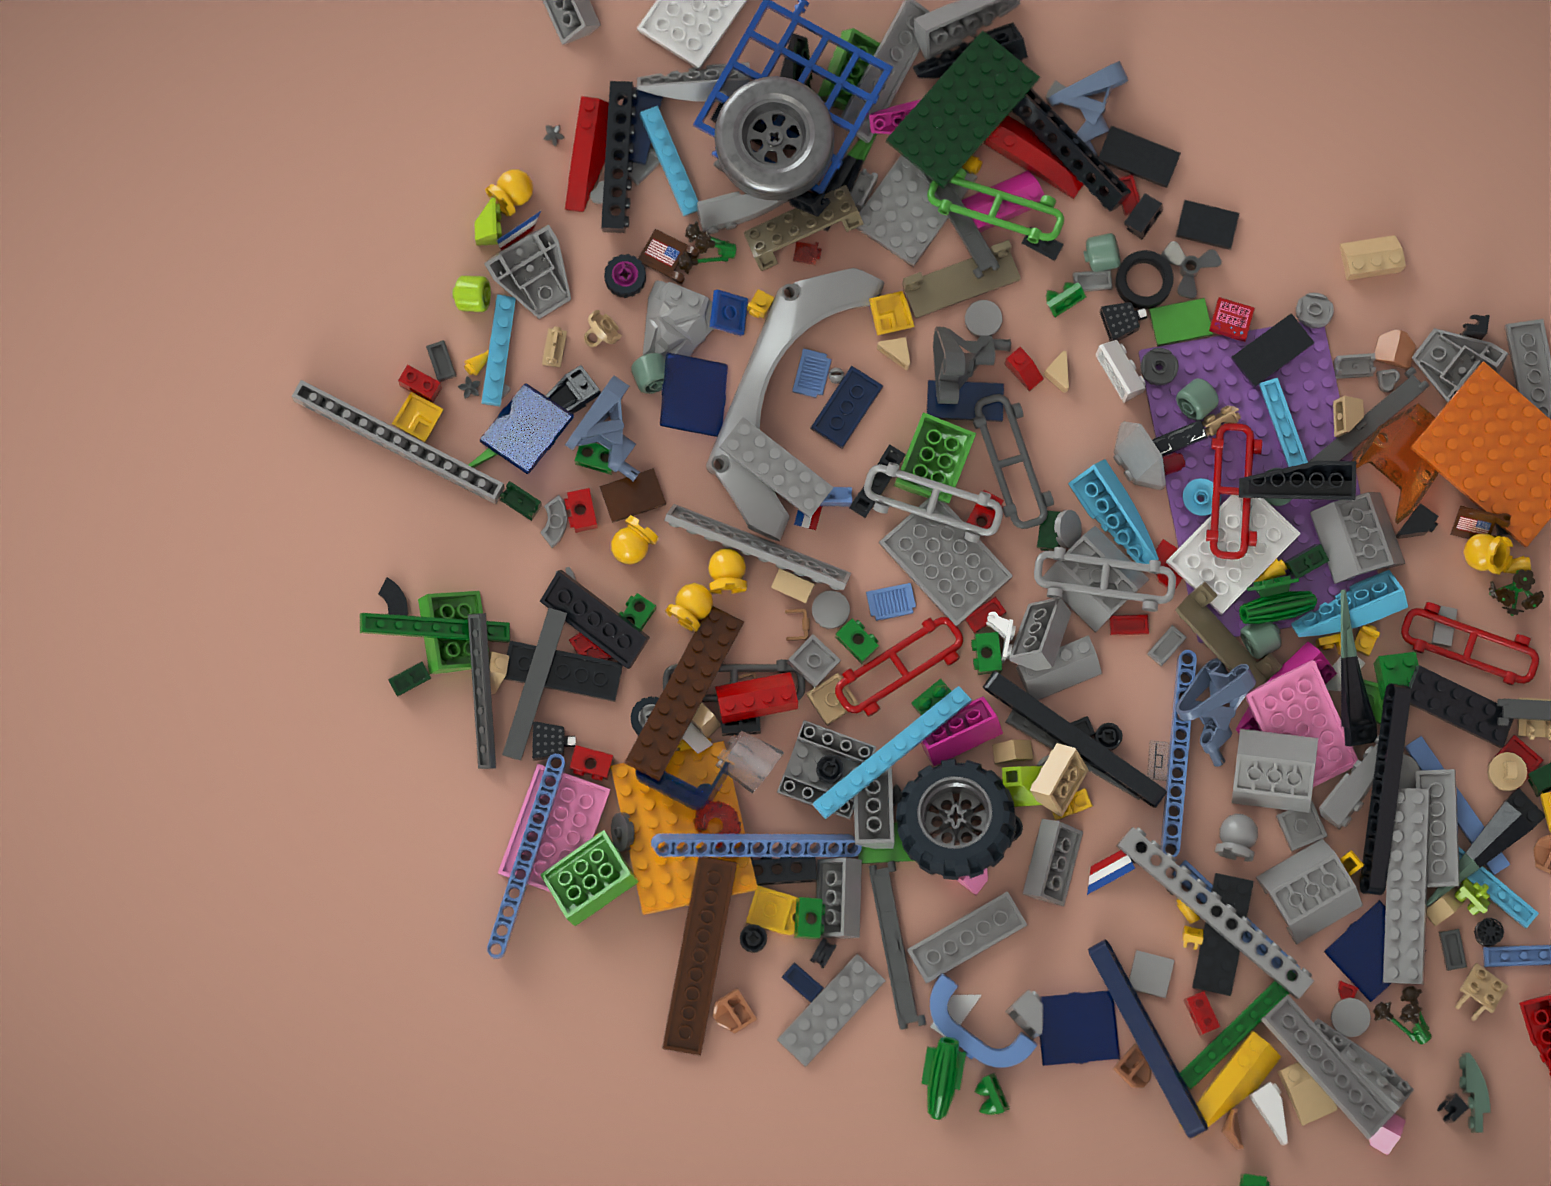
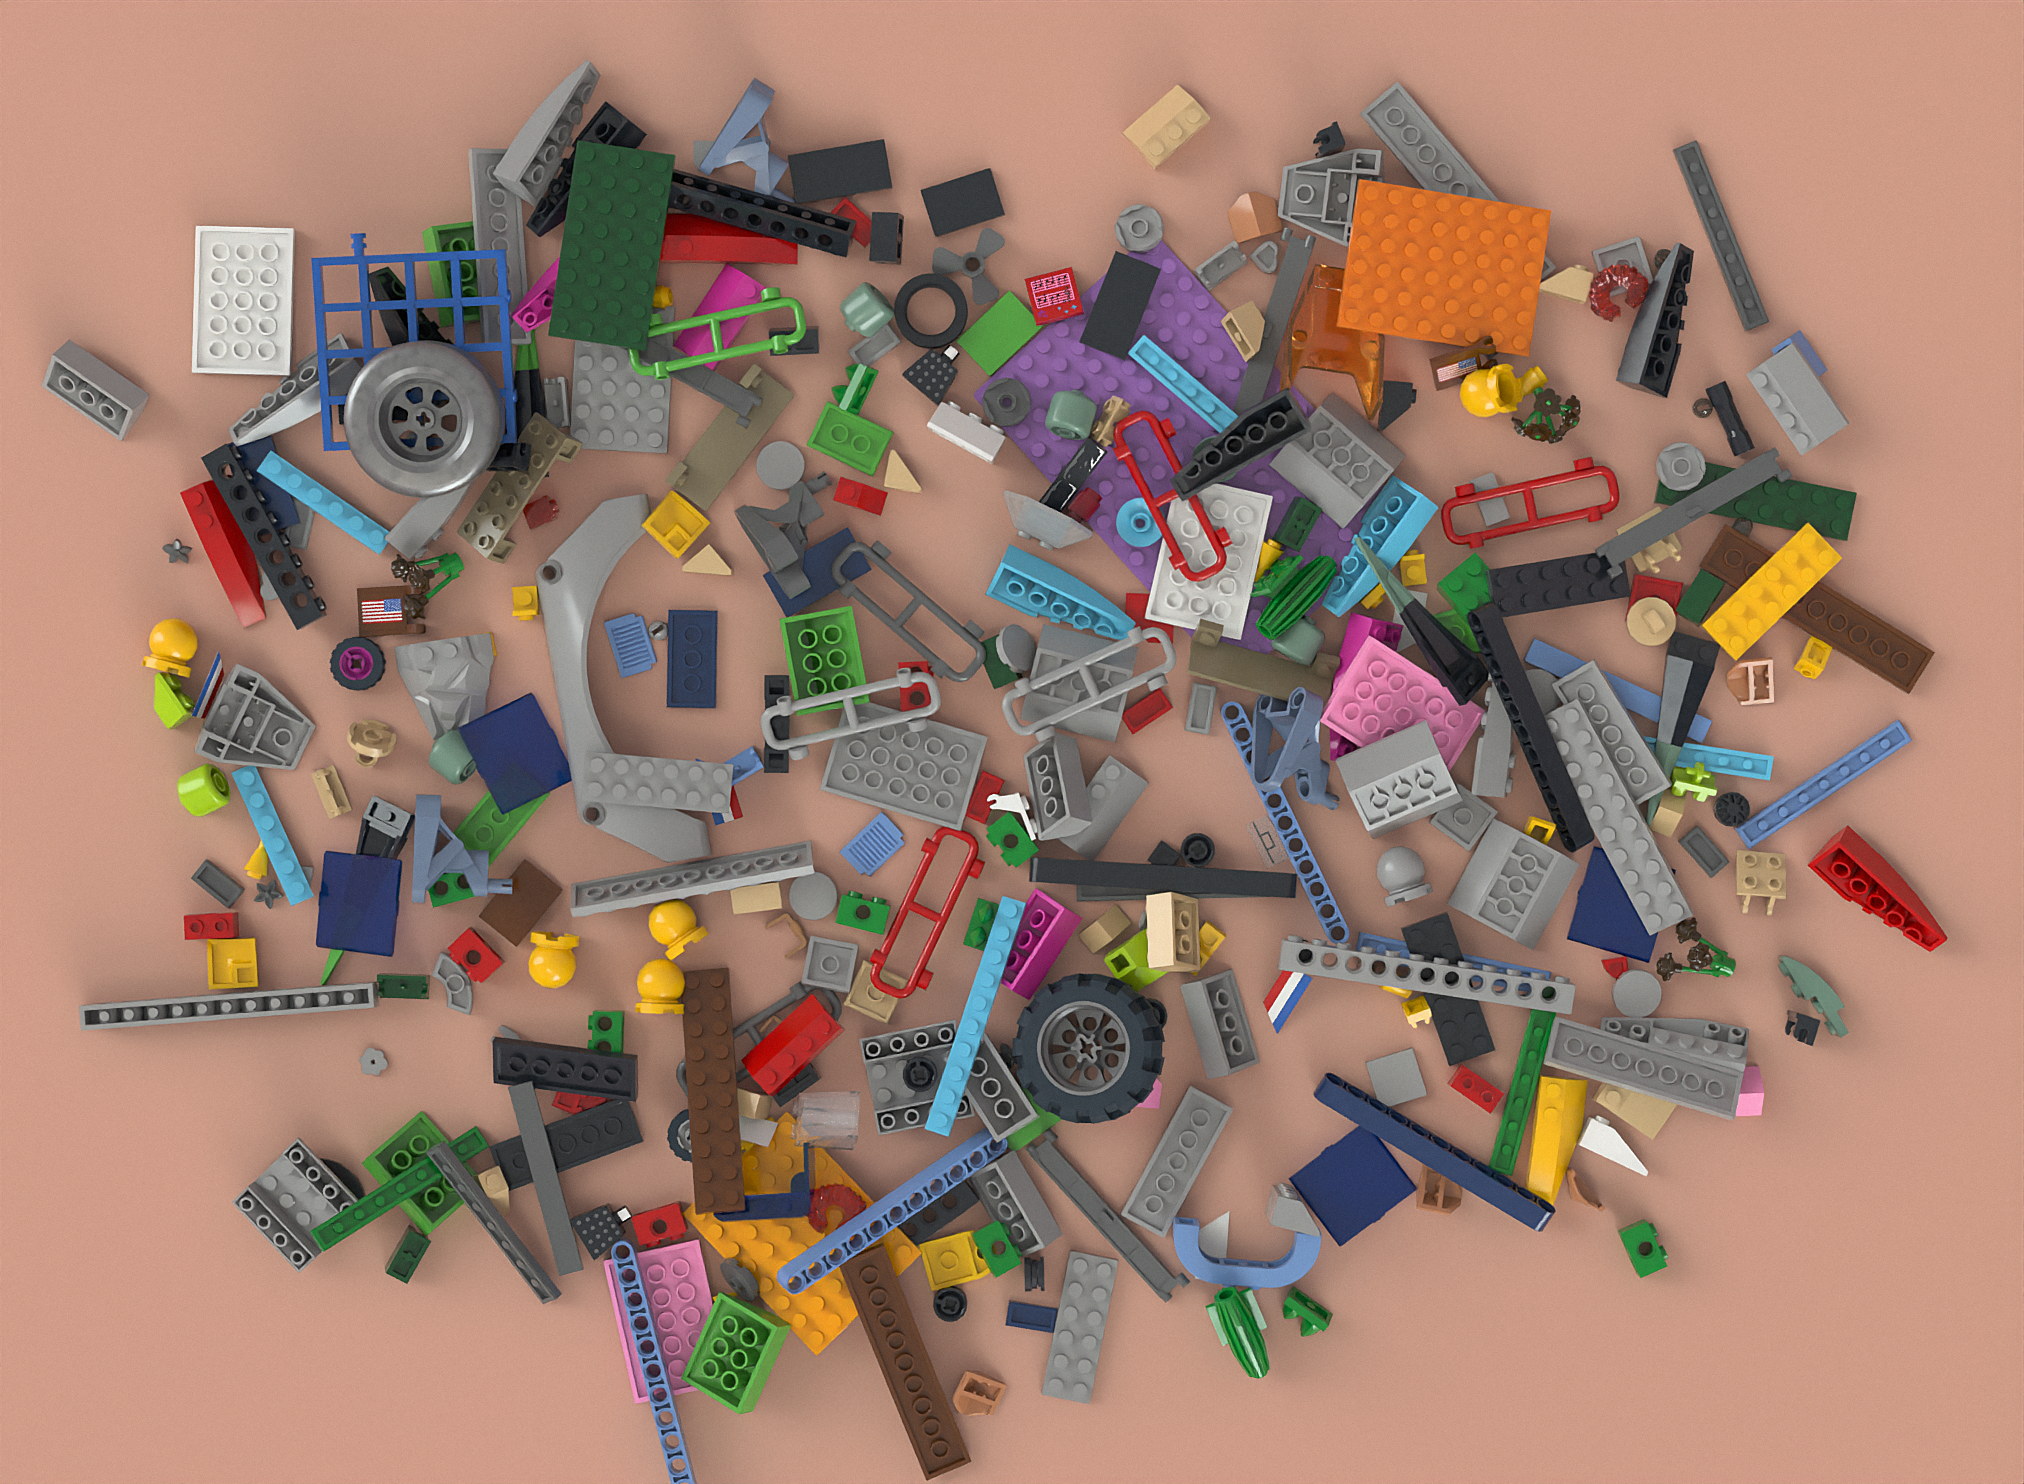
camera: 25 degrees left, 10 degrees up
(357, 590) = (293, 1200): none -> light grey slope
(468, 533) = (368, 1067): none -> light grey plant
(650, 436) = (490, 830): none -> bright green tile
(728, 312) = (497, 635): blue tile -> none
(1040, 329) = (850, 439): none -> bright green tile

